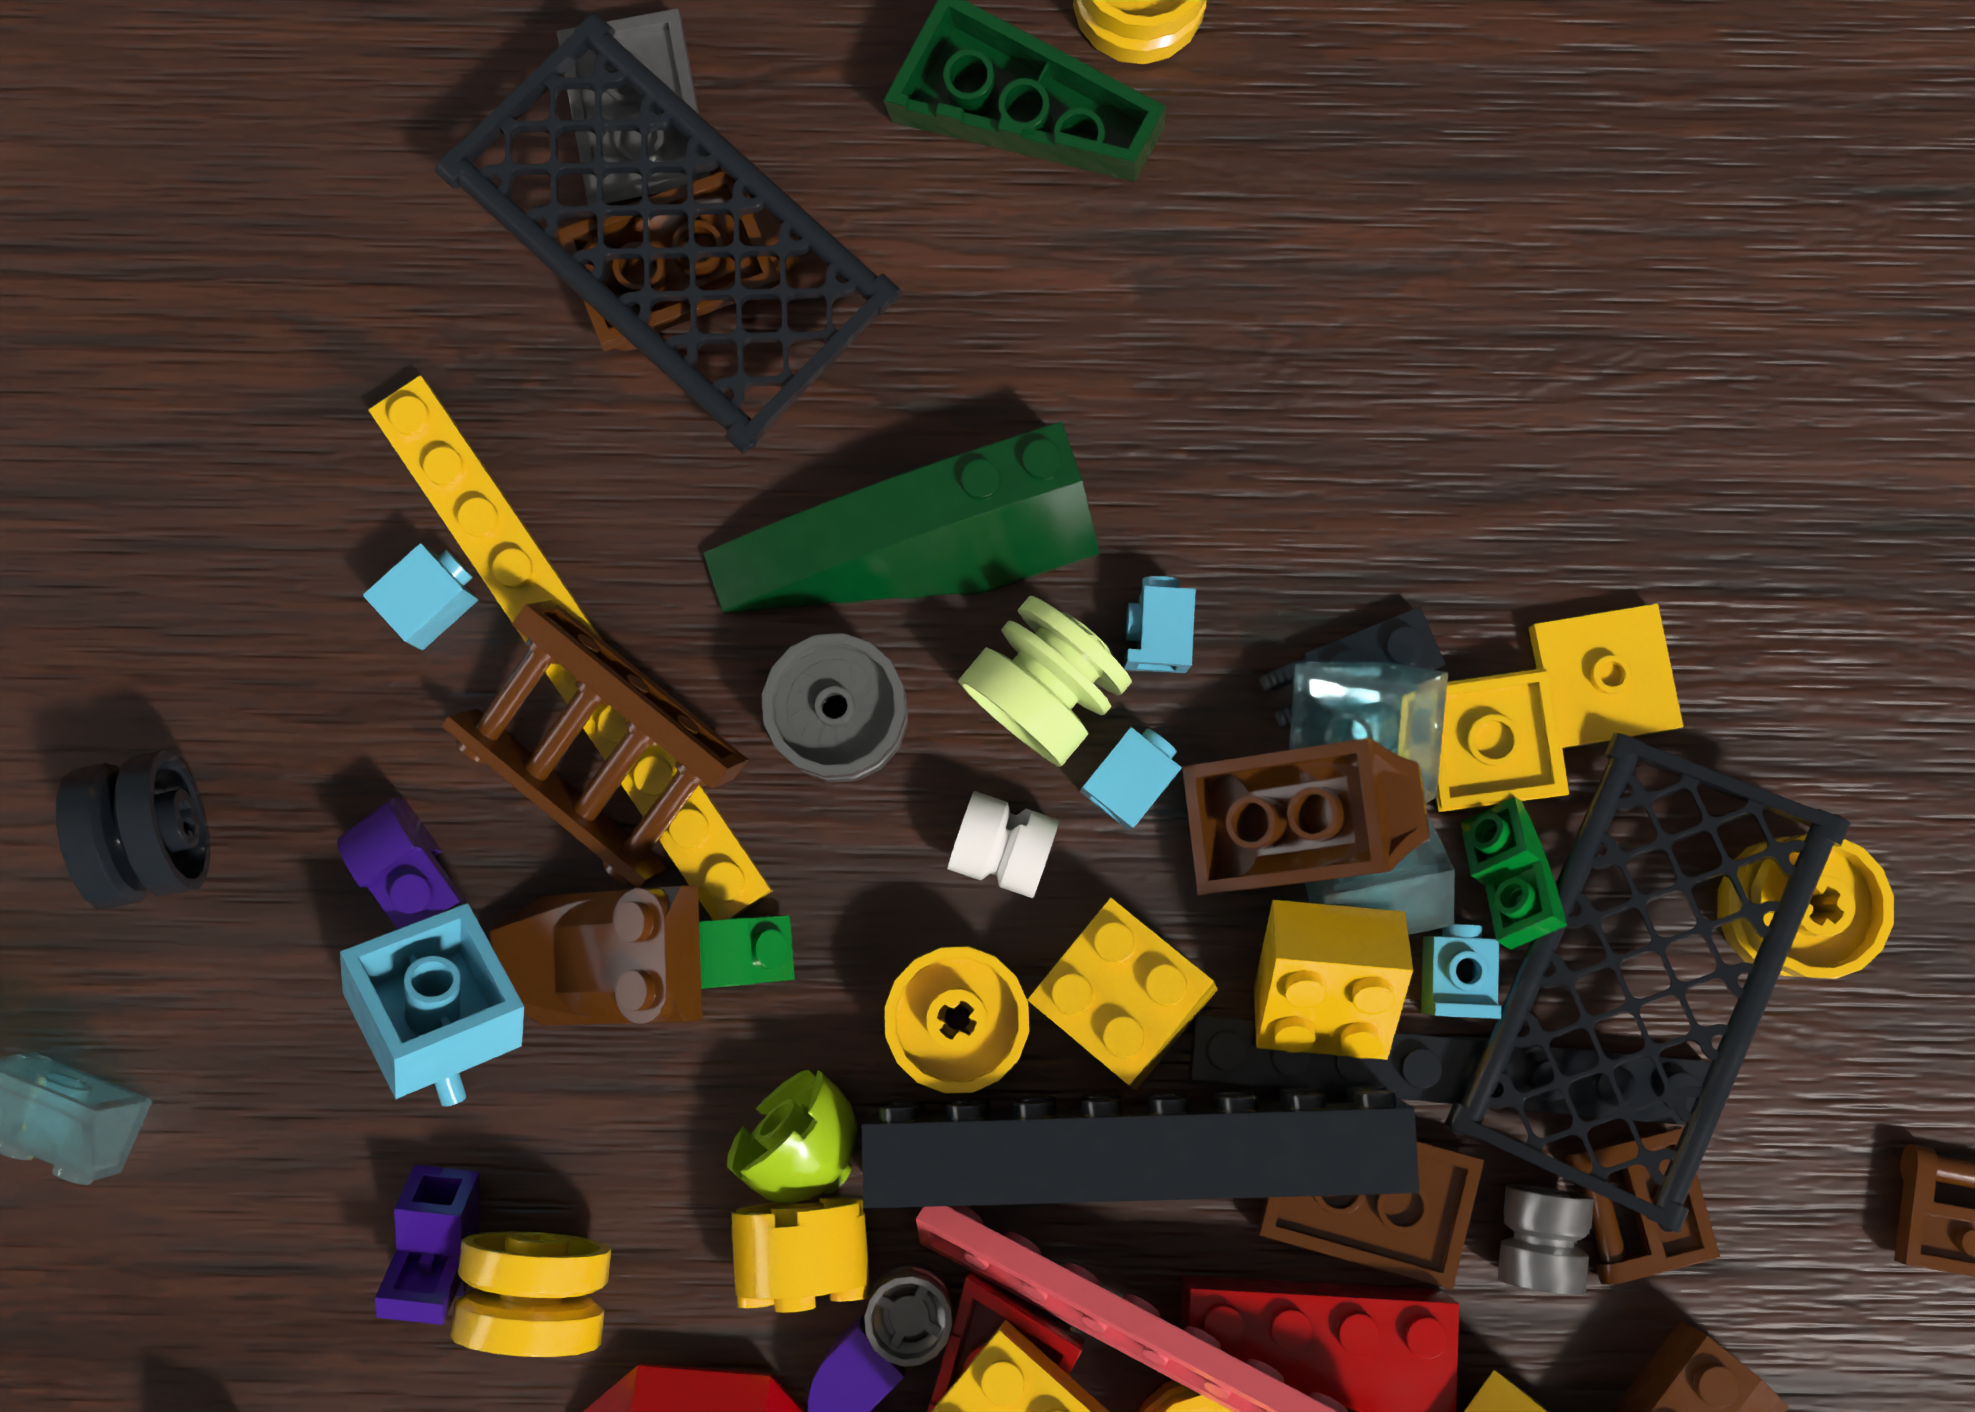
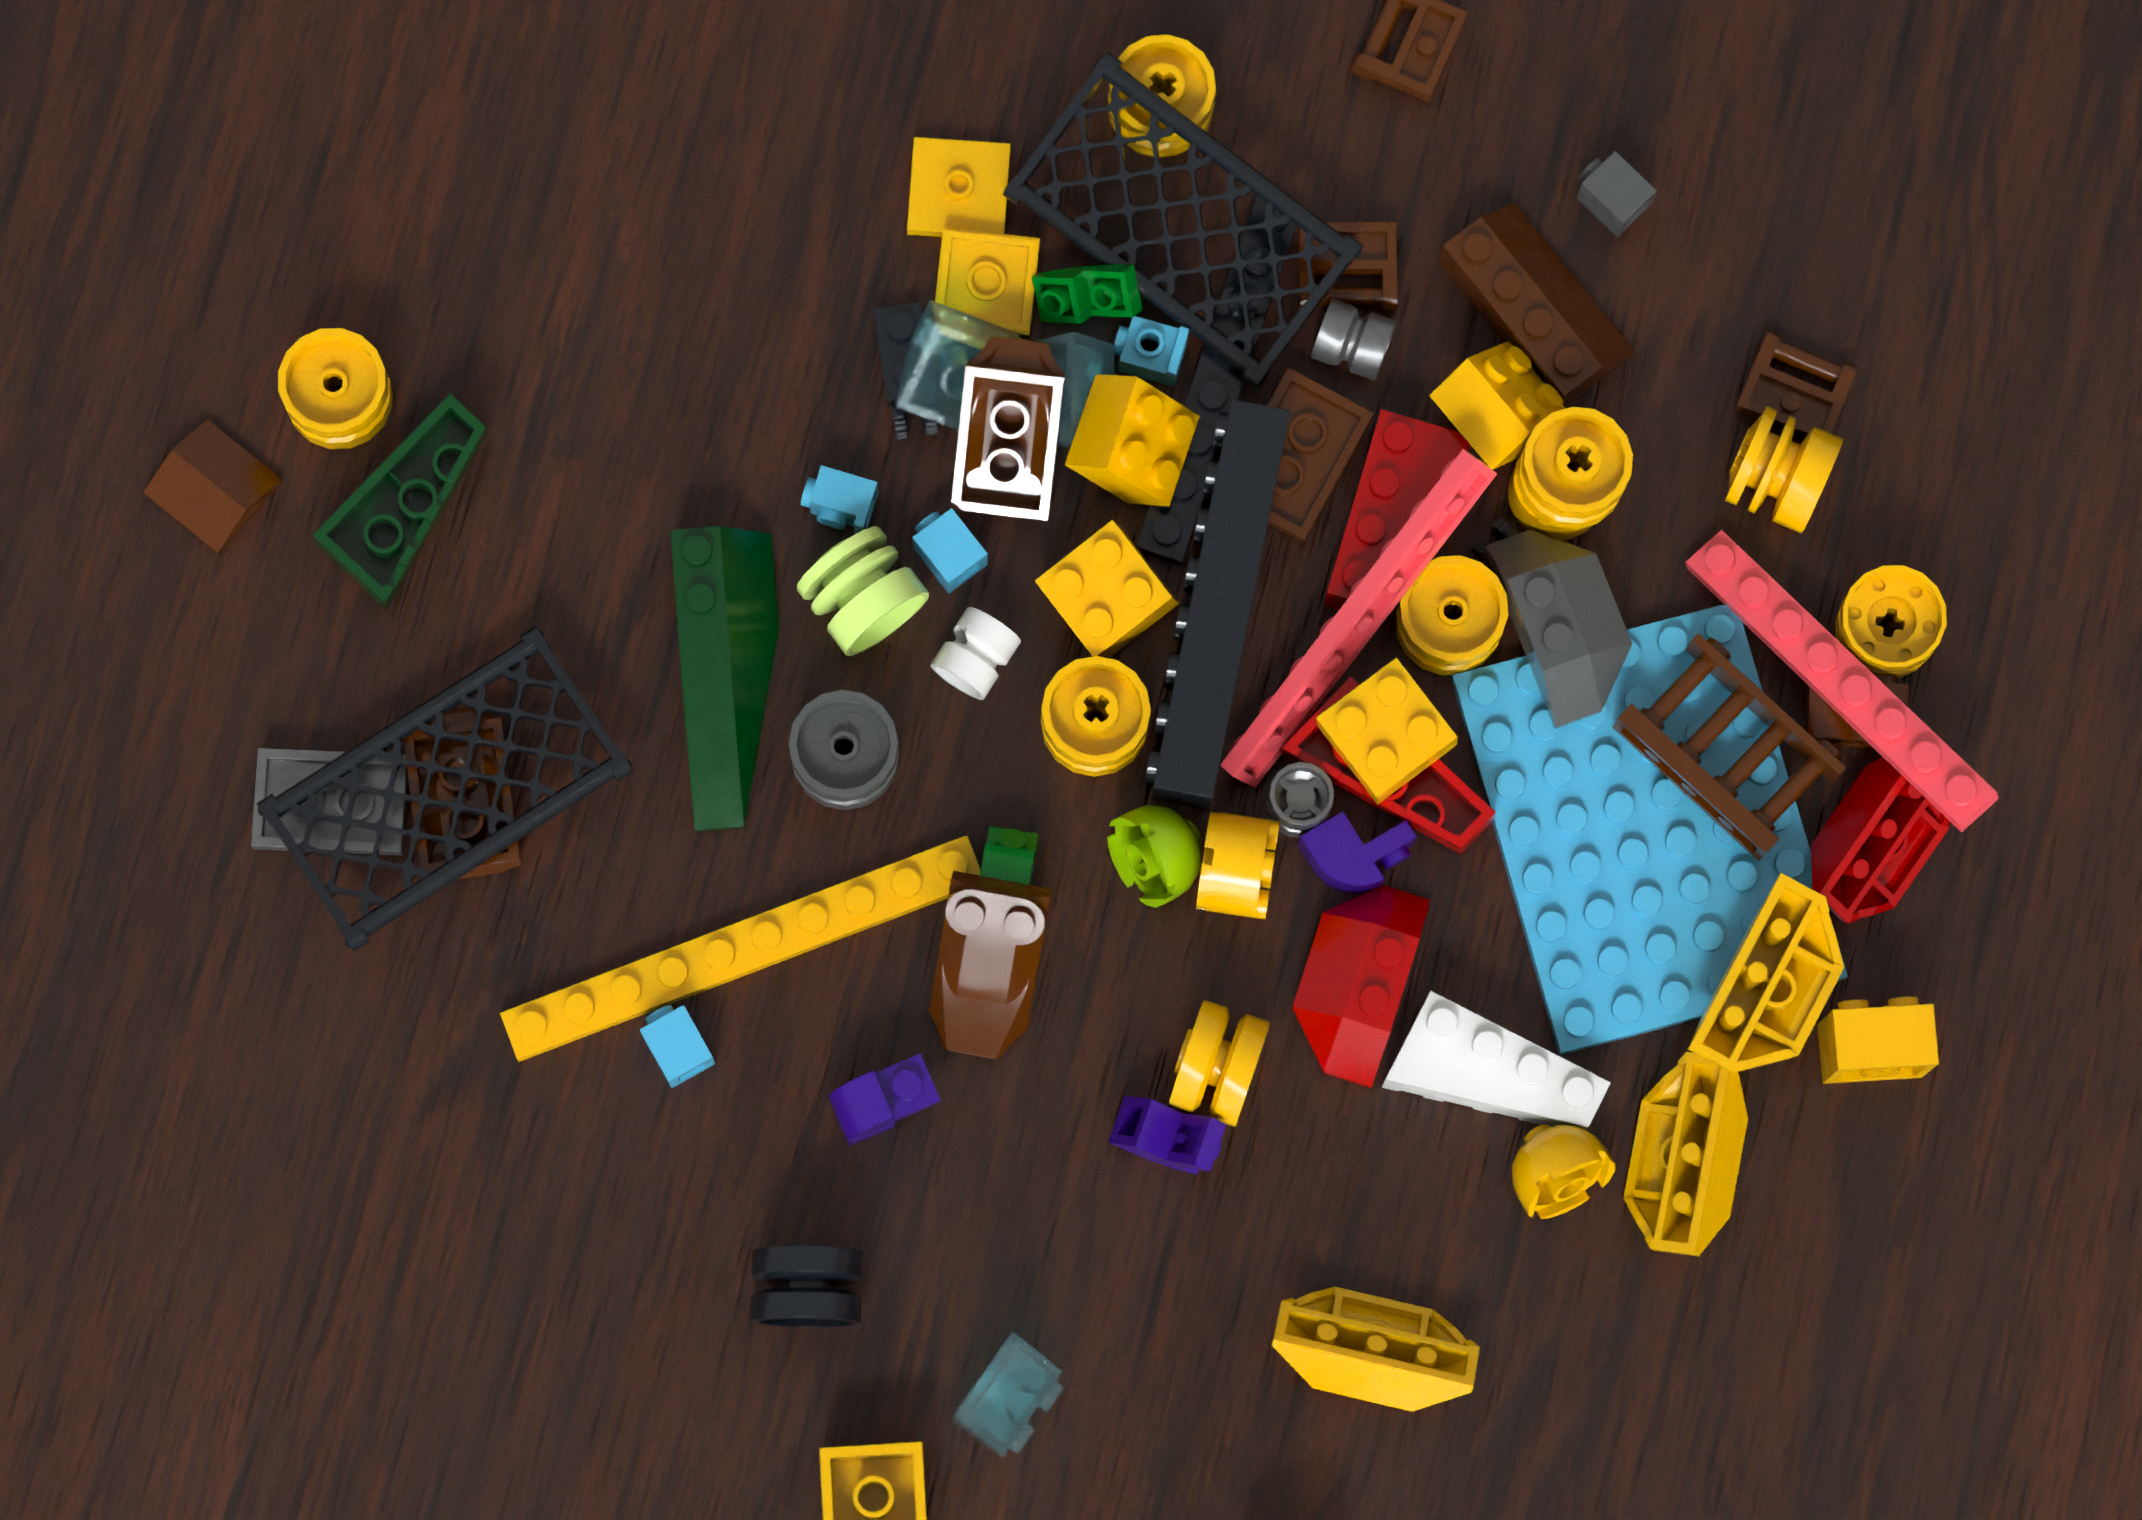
camera: 80 degrees left, 5 degrees down
(432, 1002) = (991, 1085): medium azure piece -> none
(651, 718) = (780, 915): reddish brown fence -> none

